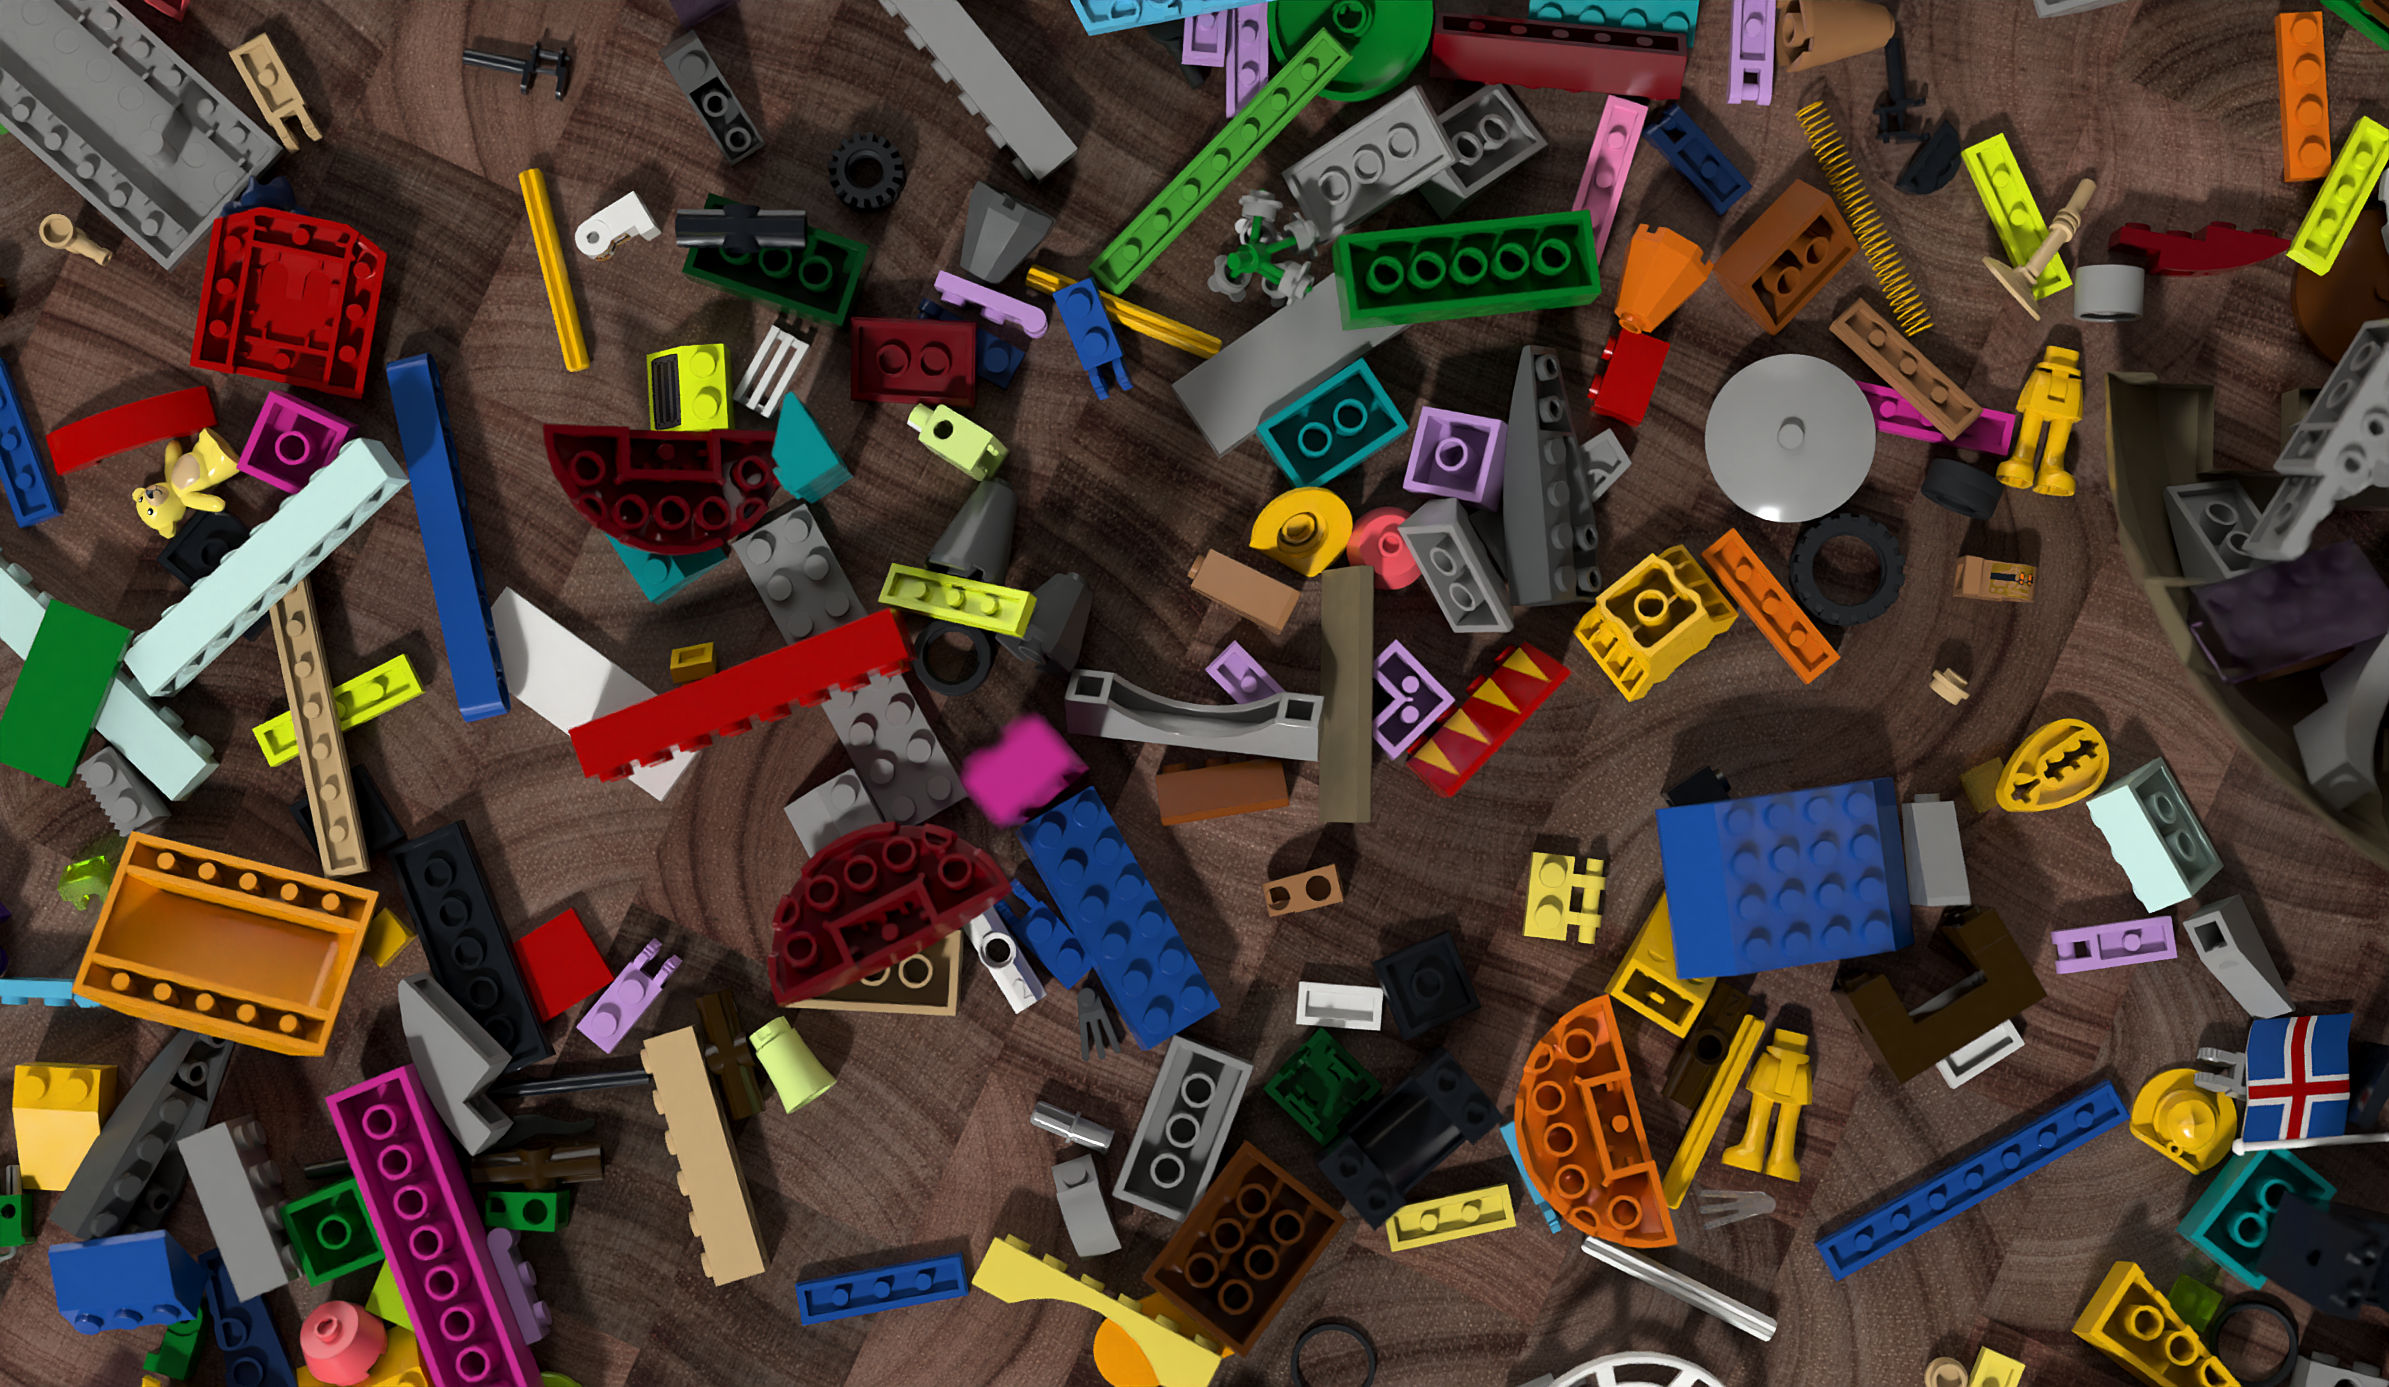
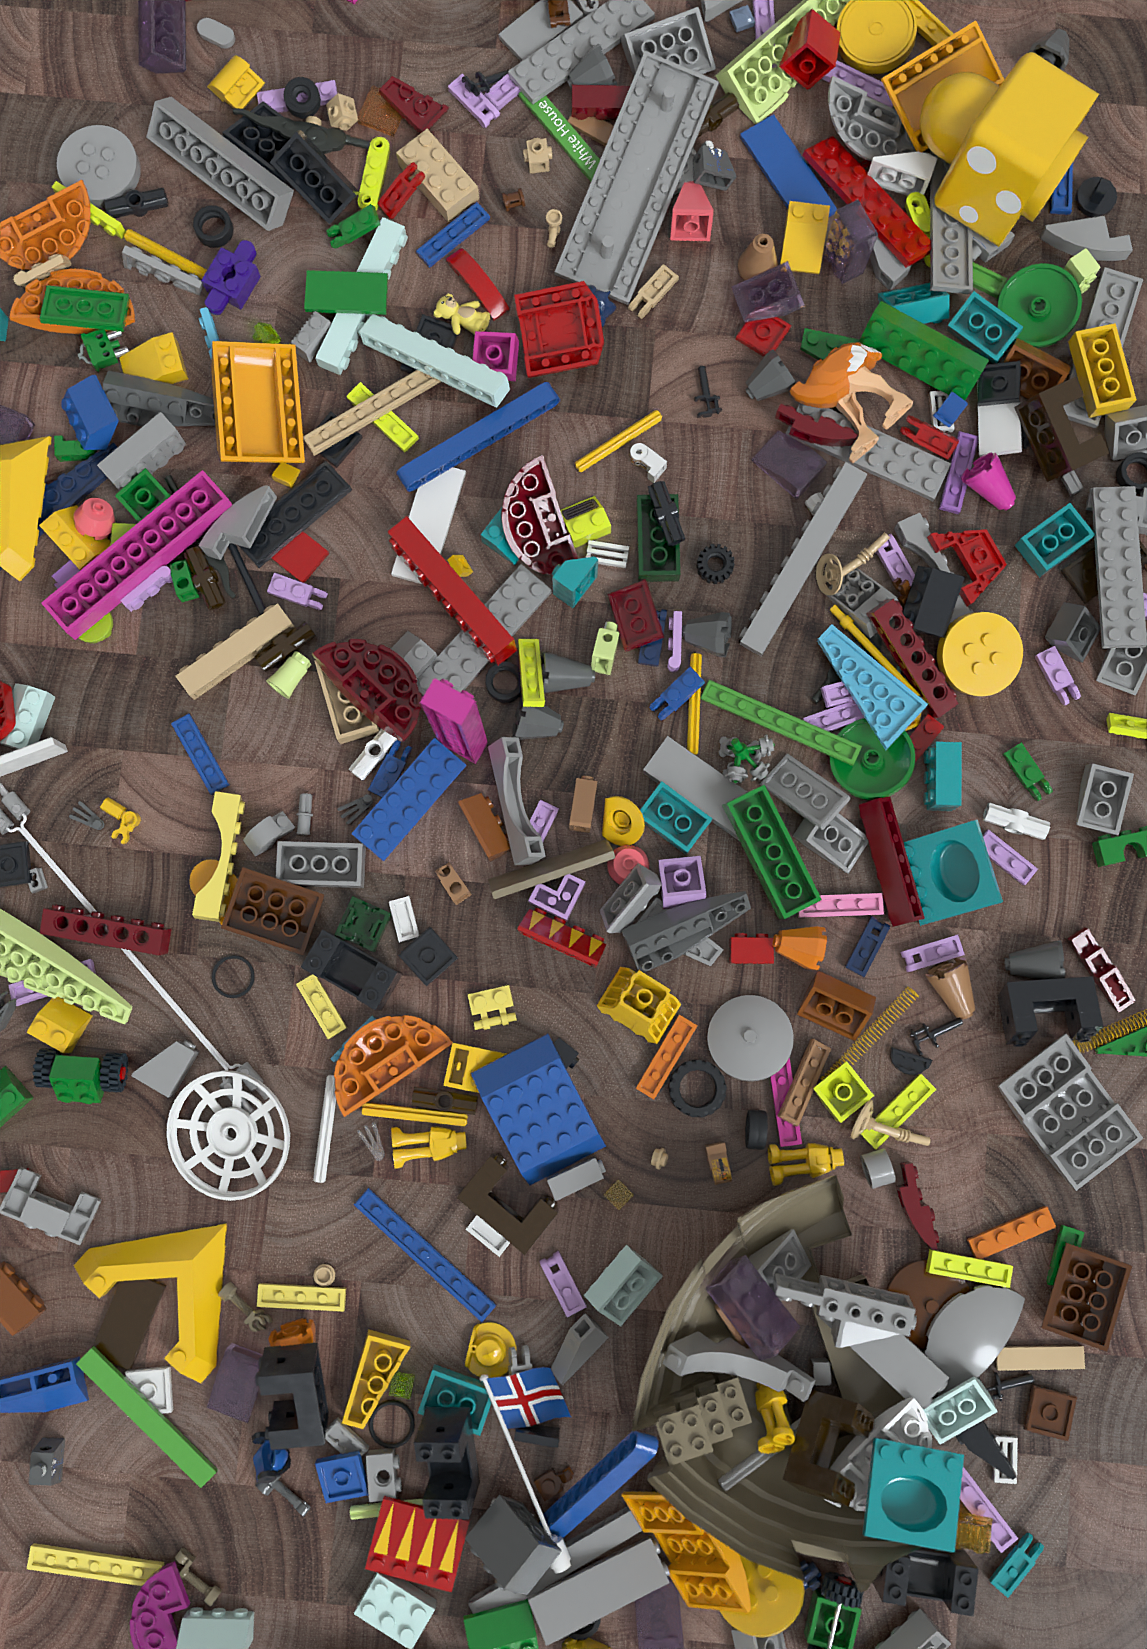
camera: 70 degrees right, 5 degrees down
(711, 97) = (723, 481): dark grey slope -> none
(1952, 304) = (843, 1092): none -> neon yellow slope
(2069, 782) = (633, 1234): yellow piece -> none

